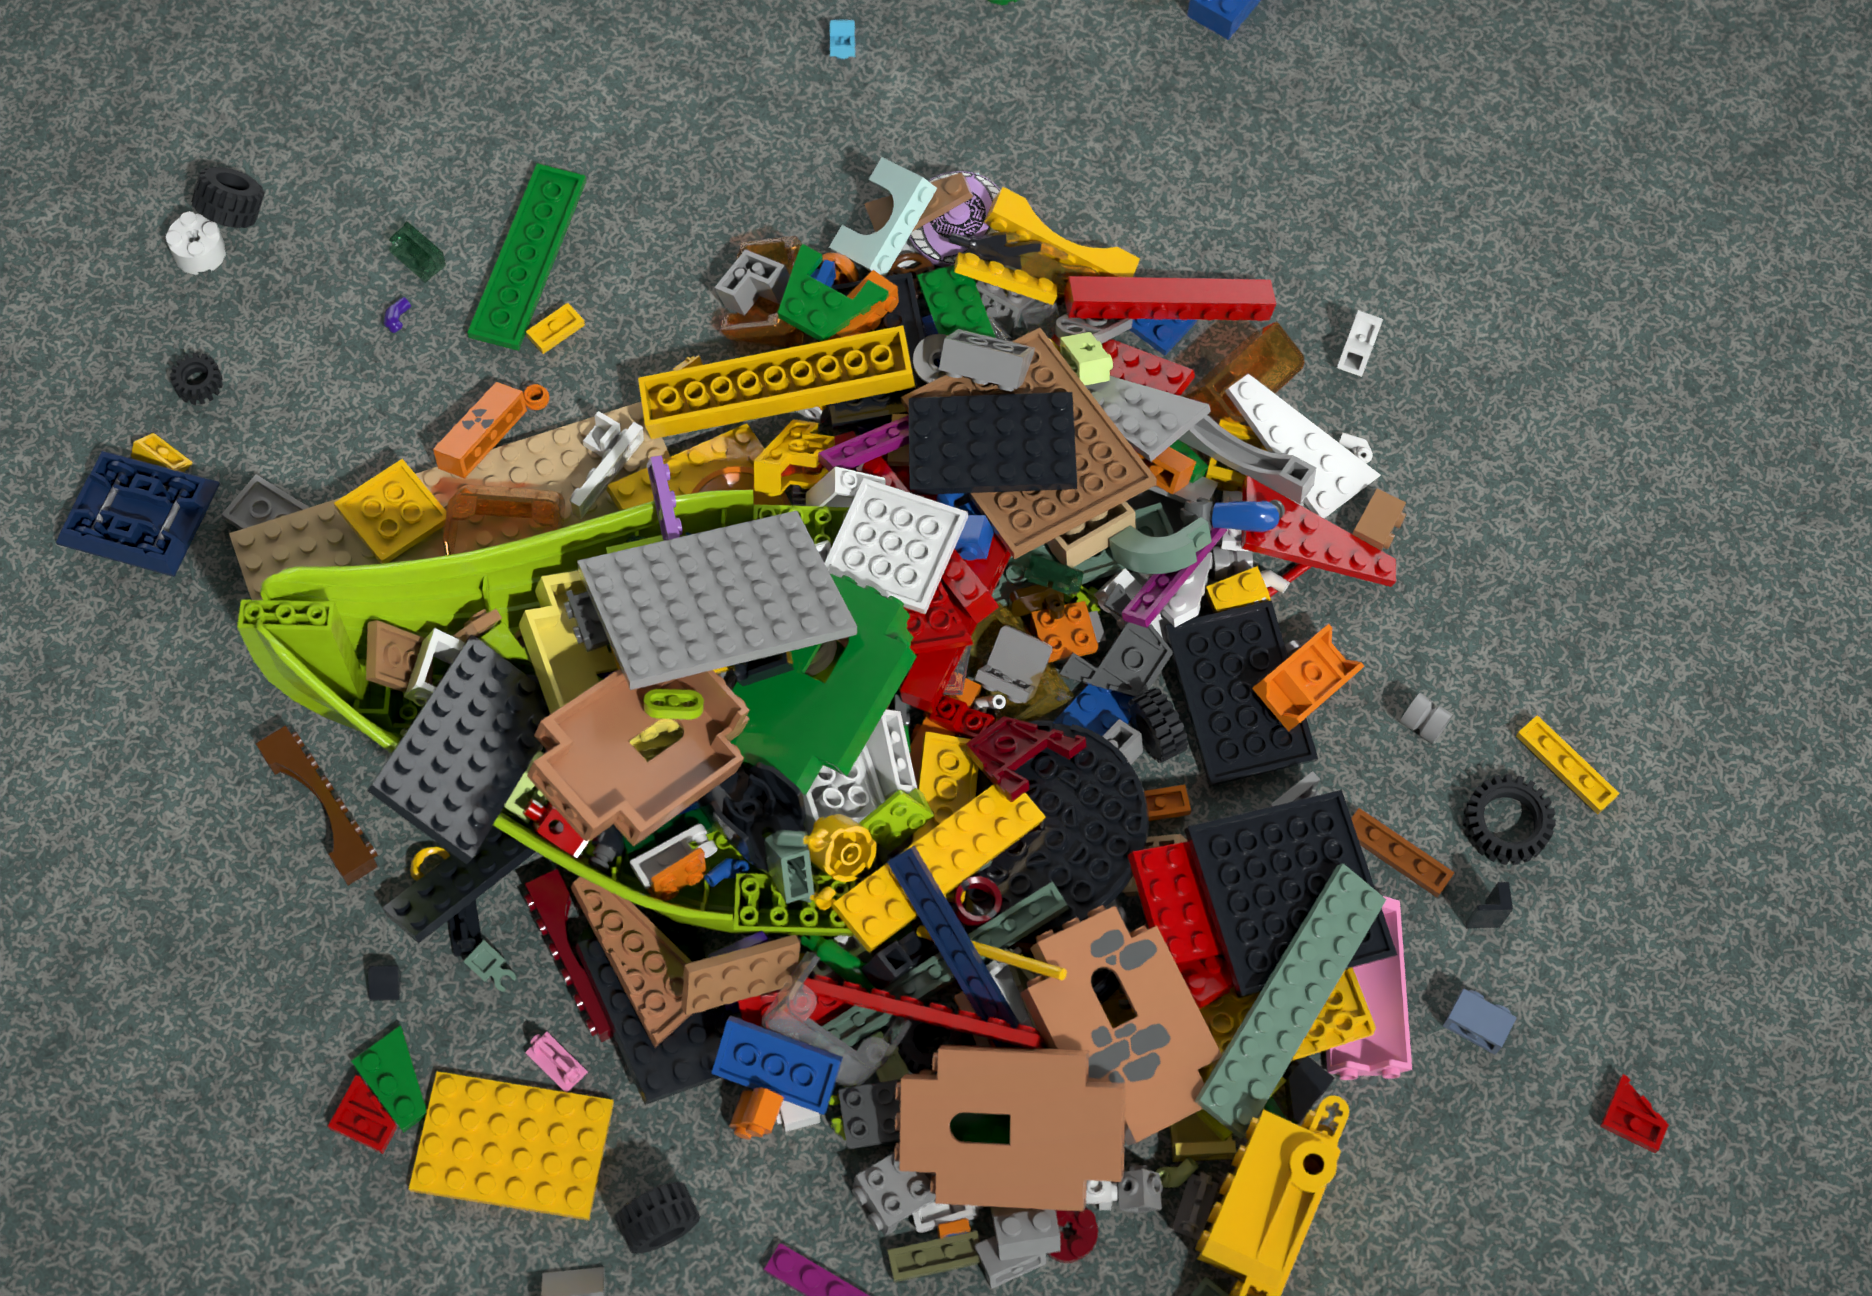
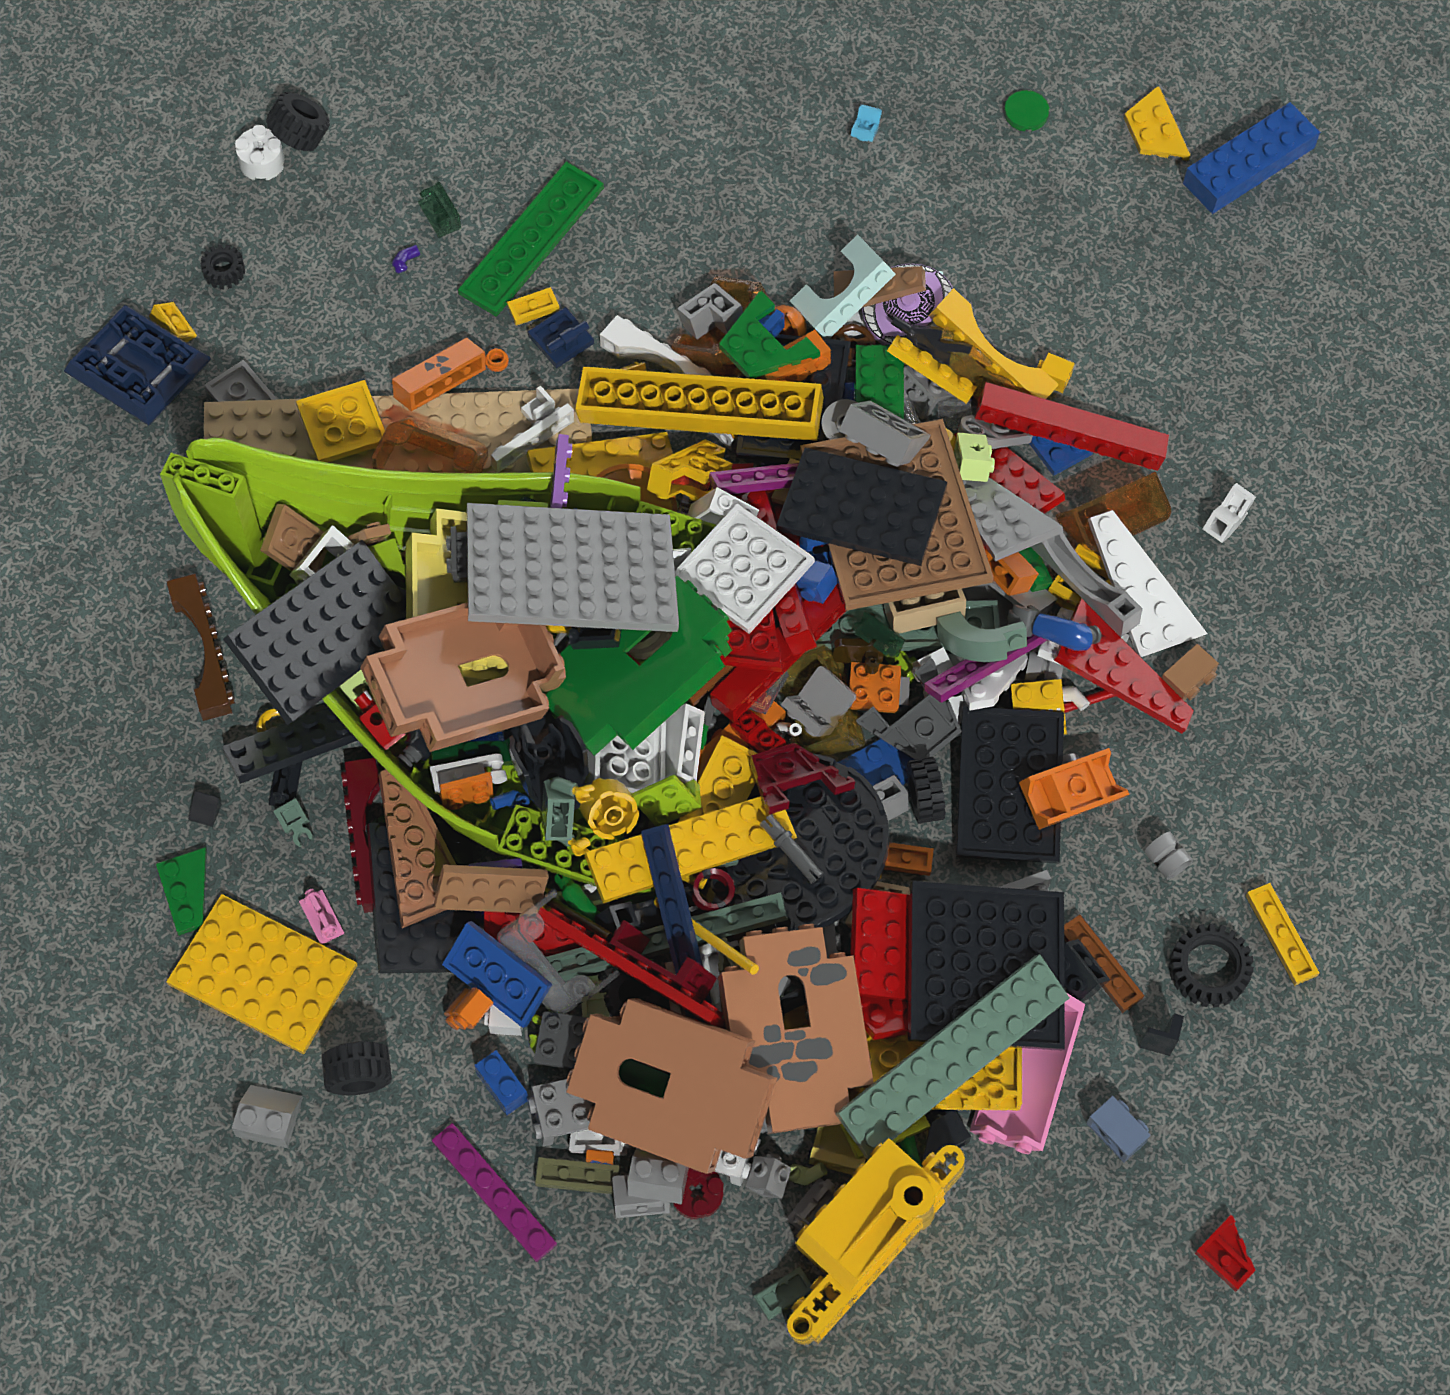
camera: 20 degrees right, 0 degrees up
(363, 1118) = (149, 913): red wing -> none
(597, 353) = (561, 337): none -> dark blue plate
(671, 338) = (628, 341): none -> white arch
(673, 704) = (505, 645): lime plate -> none
(818, 1181) = (501, 1082): none -> blue brick
(851, 977) = (580, 919): none -> dark brown bar
(998, 1001) = (691, 974): none -> dark red panel
(1046, 830) = (791, 848): none -> dark grey pin
(1132, 242) = (1058, 369): none -> yellow brick
(1358, 446) = (1197, 603): white arm -> none
(1385, 866) = (1081, 972): none -> black brick

